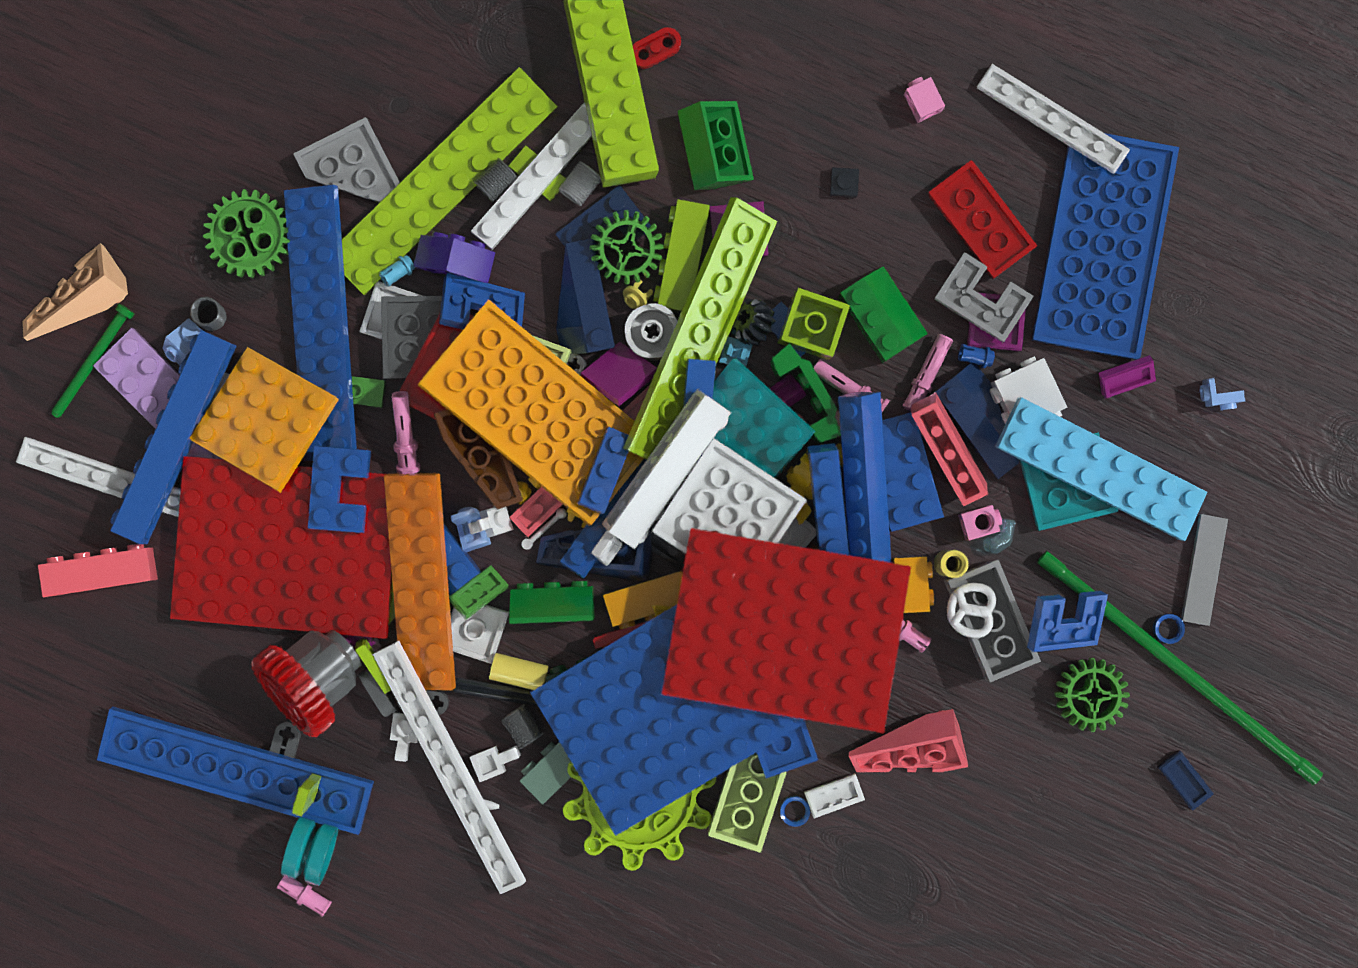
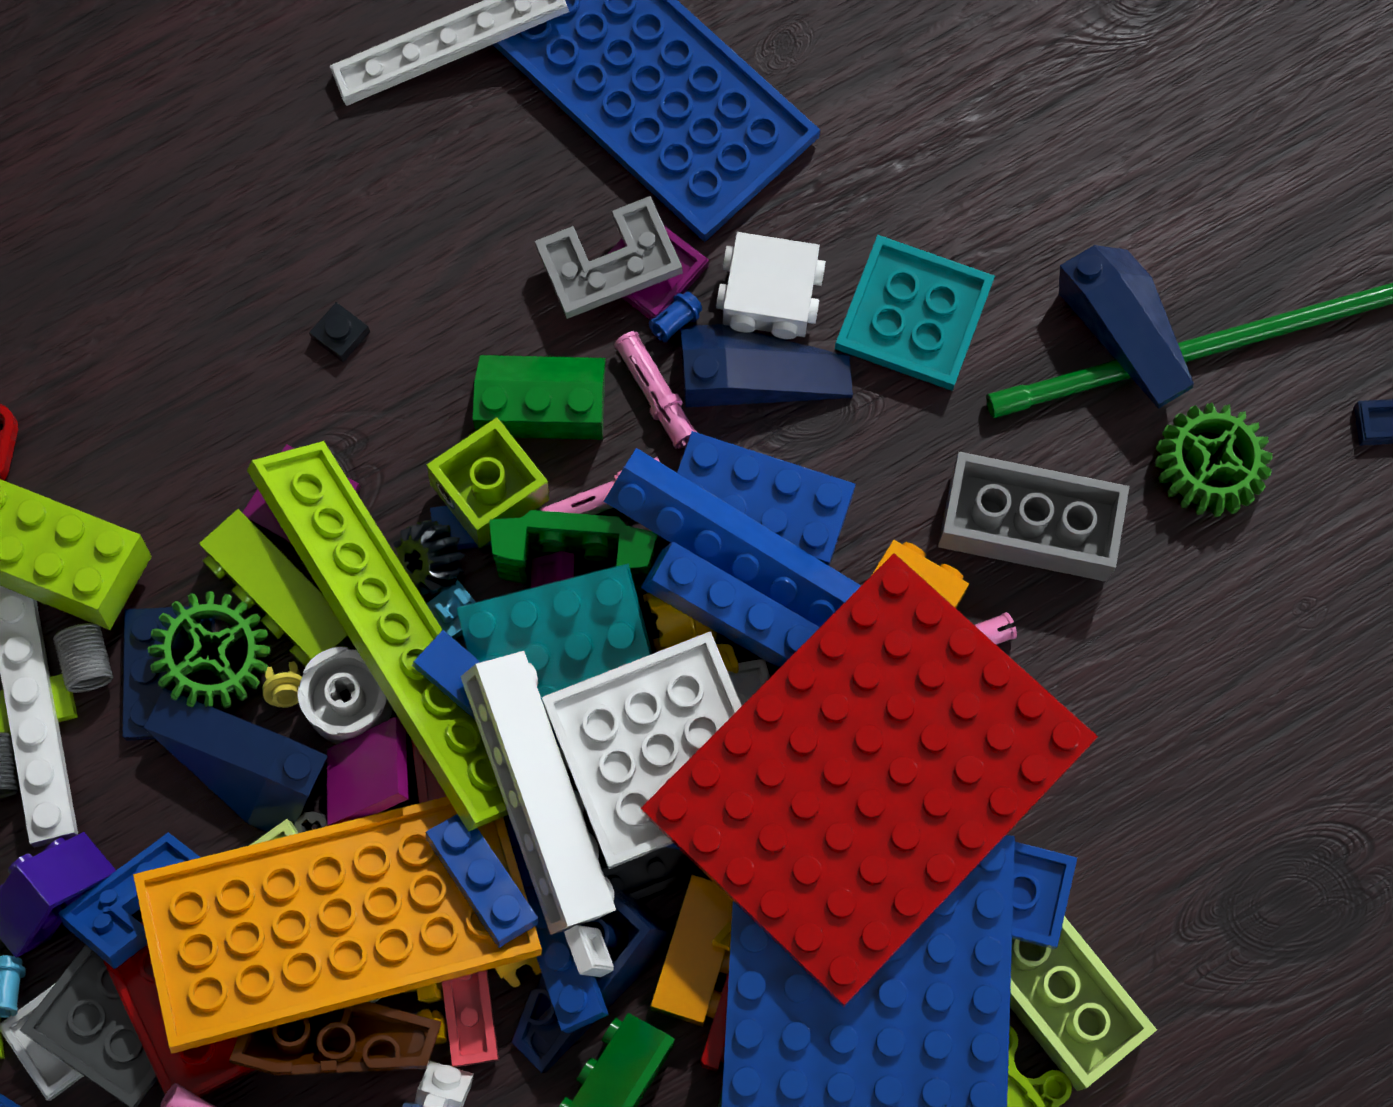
camera: 60 degrees left, 15 degrees down
(528, 543) = (506, 1068): white hinge -> none
(715, 144) = (167, 454): green slope -> none
(803, 820) = (1140, 936): blue piece -> none
(834, 795) = (1138, 881): white plate -> none
(923, 99) = (310, 169): bright pink brick -> none
(924, 743) = (1141, 714): coral wedge -> none
(949, 449) = (772, 419): coral brick -> none
(960, 567) = (927, 502): light yellow pin -> none
(968, 525) = (890, 467): bright pink brick -> none
(970, 609) = (1002, 526): white piece -> none
(982, 219) = (509, 199): red plate -> none
(1002, 540) = (935, 439): clear light blue arm -> none
(1054, 633) = (1104, 444): blue plate -> none
(1101, 469) = (924, 259): medium azure plate -> none
(1127, 376) = (831, 159): magenta tile -> none
(1146, 593) = (1127, 316): none -> dark blue wedge
(1181, 628) = (1196, 301): blue piece -> none
(1204, 569) = (1139, 227): light grey tile -> none
(1225, 400) = (927, 80): light blue bracket -> none

